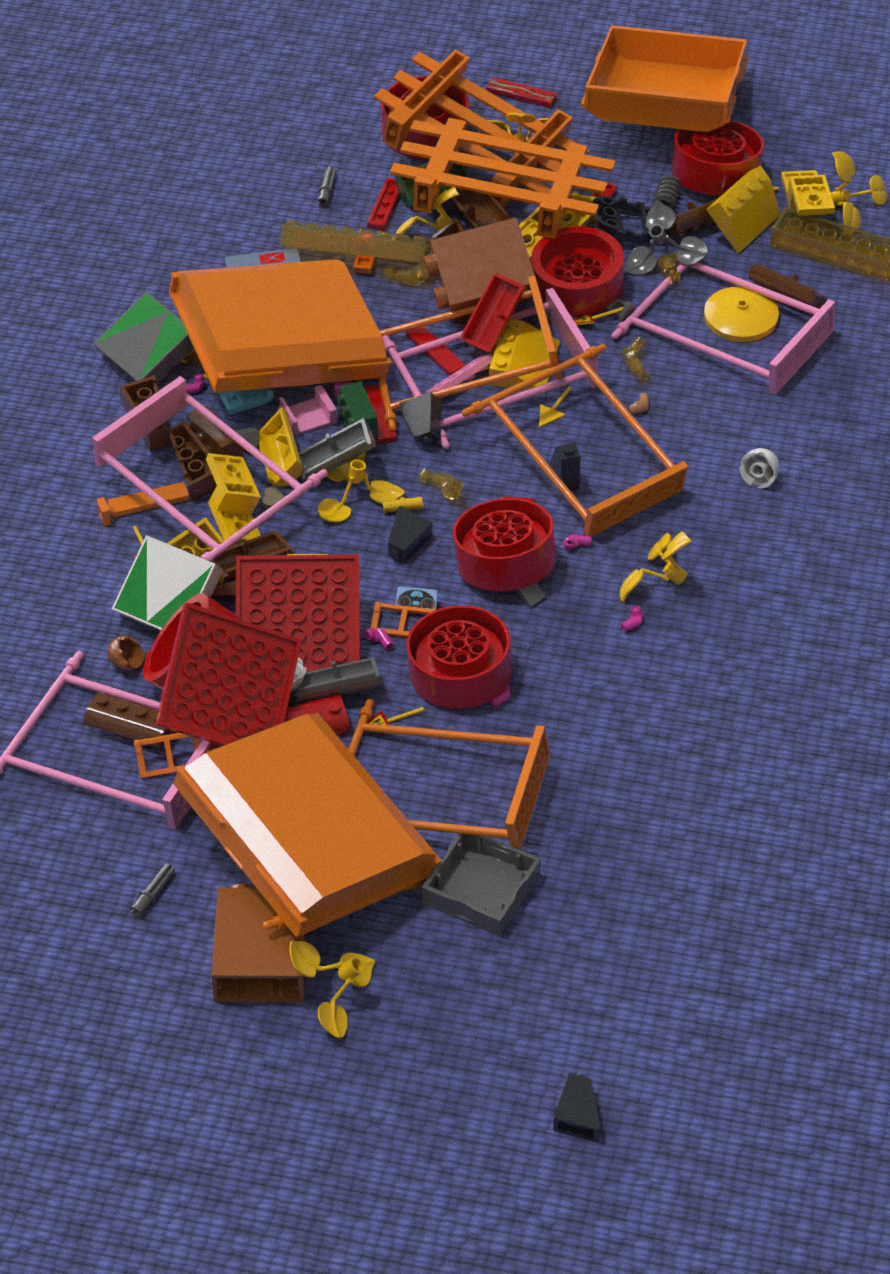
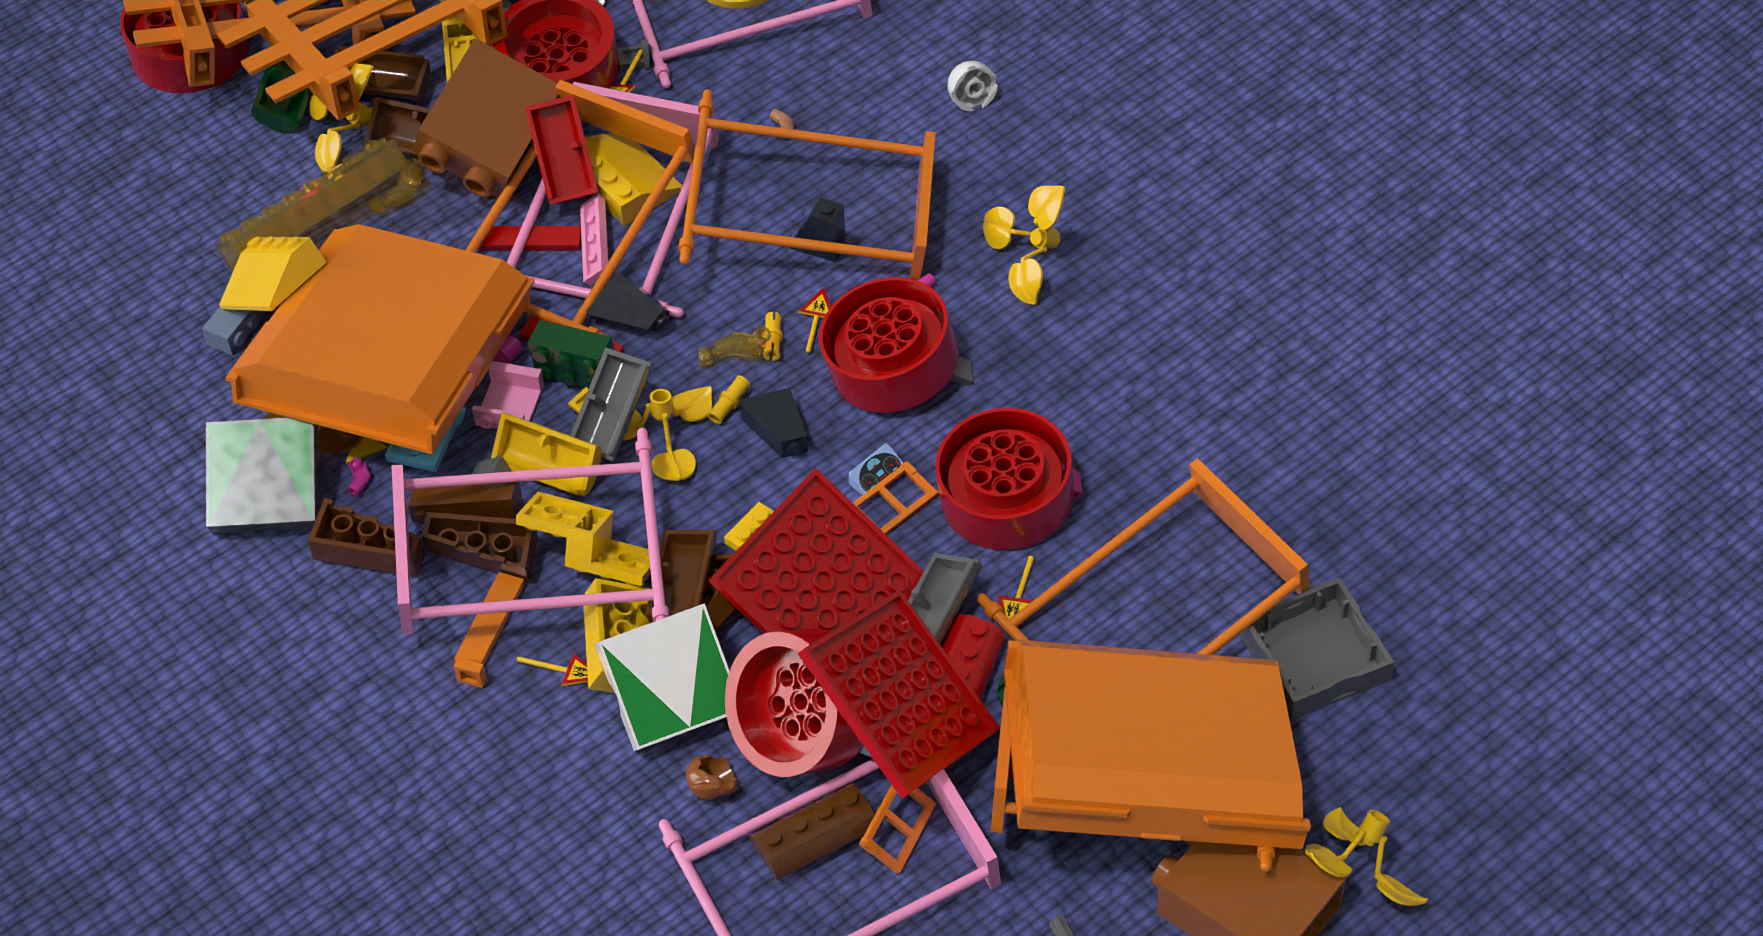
camera: 50 degrees left, 5 degrees up
(271, 497) = (605, 501): dark tan tile -> none
(278, 251) = (270, 272): none -> yellow slope
(325, 190) = (188, 184): dark grey axle -> none
(363, 264) = (340, 219): orange plate -> none
(378, 635) = (898, 531): dark pink arm -> none
(384, 206) = (265, 148): red tile -> none
(469, 495) = (773, 344): none -> yellow pin
(548, 414) = (716, 204): yellow piece -> none
(577, 1109) = (1674, 747): black slope -> none
(632, 361) = (722, 89): clear yellow arm -> none
(635, 619) = (1071, 309): dark pink arm -> none

